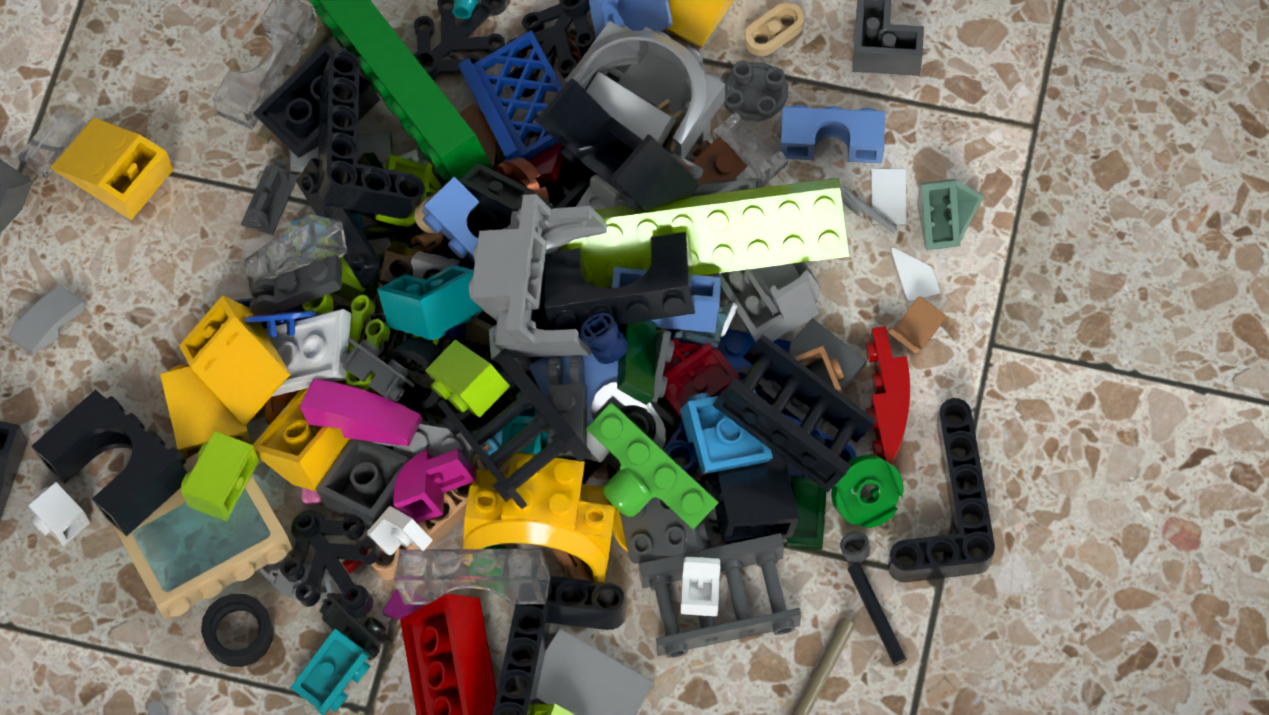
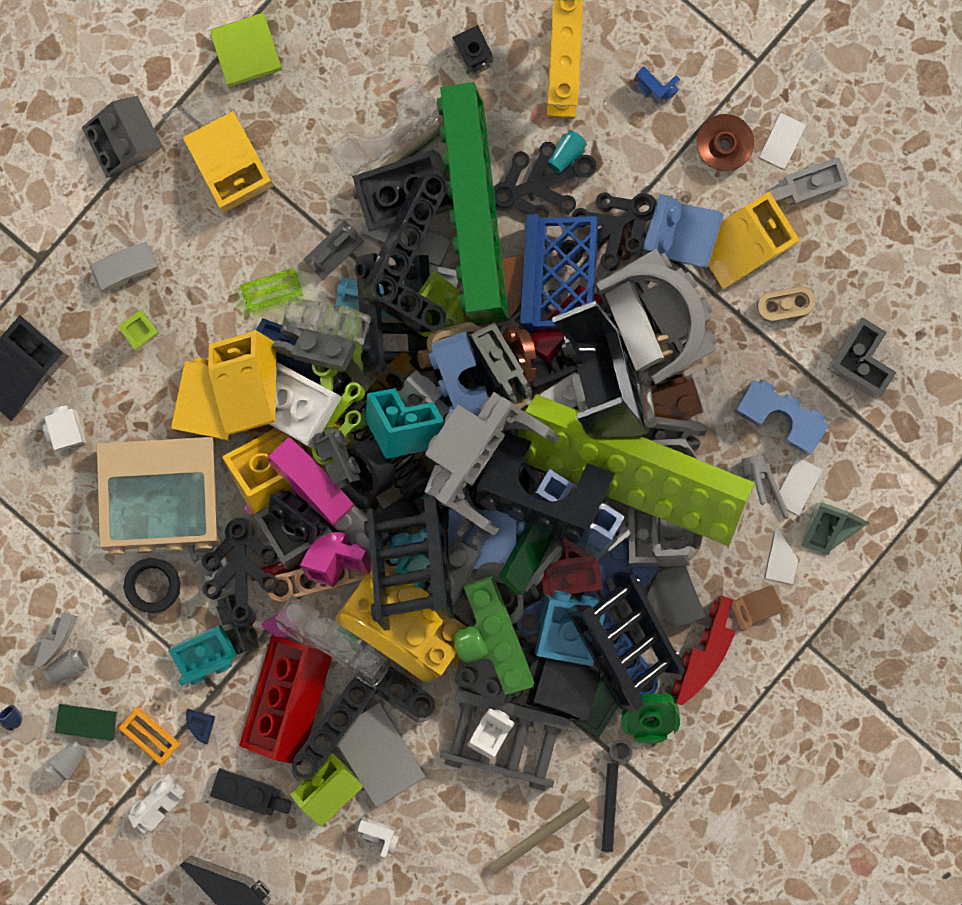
camera: 25 degrees right, 20 degrees up
(78, 55) = (245, 49): none -> lime slope
(92, 370) = (138, 330): none -> lime panel
(100, 426) = (143, 442): black arch -> none
(212, 262) = (268, 279): none -> clear neon green tile
(219, 475) = (188, 471): lime brick -> none
(280, 317) = (288, 372): blue piece -> none
(357, 462) = (285, 509): none -> black hinge
(396, 529) = (295, 580): white bracket -> none
(466, 379) = (395, 506): lime brick -> none
(604, 338) = (509, 539): dark blue wheel -> none
(755, 90) = (743, 349): dark grey dish -> none
(833, 367) = (676, 613): medium nougat bracket -> none
(961, 503) = (713, 759): black beam -> none

